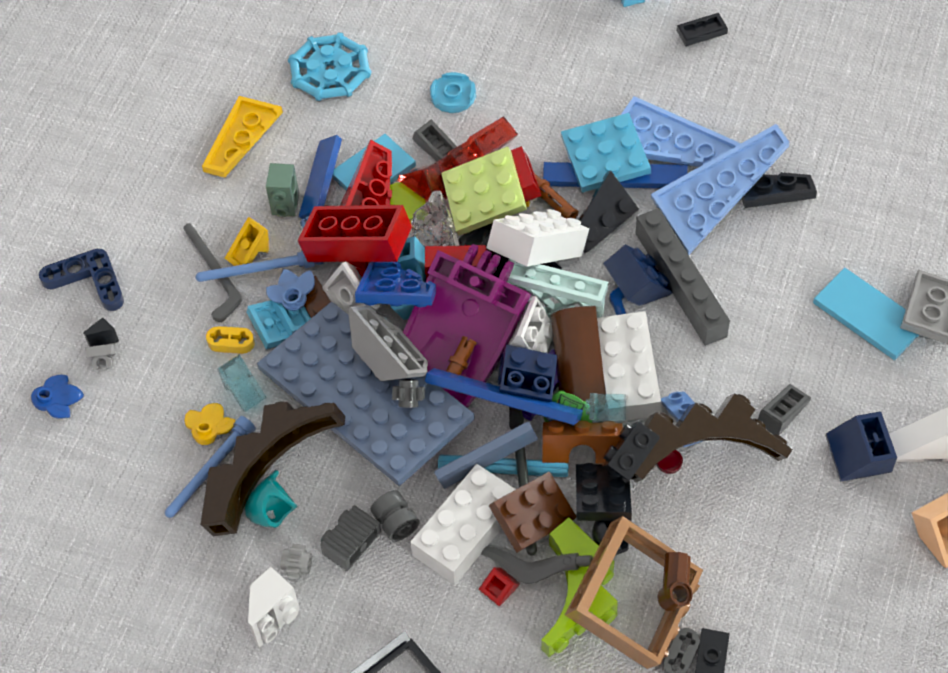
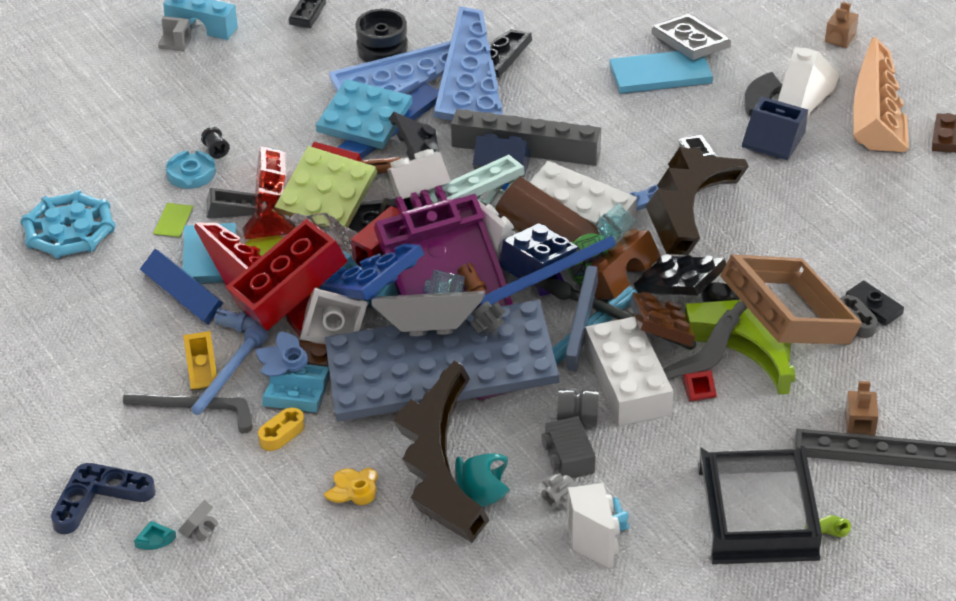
camera: 55 degrees left, 15 degrees down
(59, 396) = (206, 579): blue plate -> none
(74, 338) = (154, 537): none -> teal tile
(100, 334) = (178, 508): black slope -> none
(240, 132) = (68, 313): yellow wing -> none
(241, 383) = (341, 435): clear light blue slope -> none
(241, 427) = (385, 465): medium blue piece -> none
(282, 189) = (173, 307): sand green brick -> none
(305, 622) = (620, 514): none -> medium azure hand
(393, 121) = (173, 219): none -> lime sticker
(434, 343) = (444, 283): none -> clear light blue brick
(490, 85) = (216, 144): none -> black bush
(631, 450) = (669, 227): black bracket -> none
(675, 580) = (813, 271): reddish brown piece -> none
(708, 98) = (381, 34): none -> black wheel
(911, 405) = (765, 85): none -> black tile

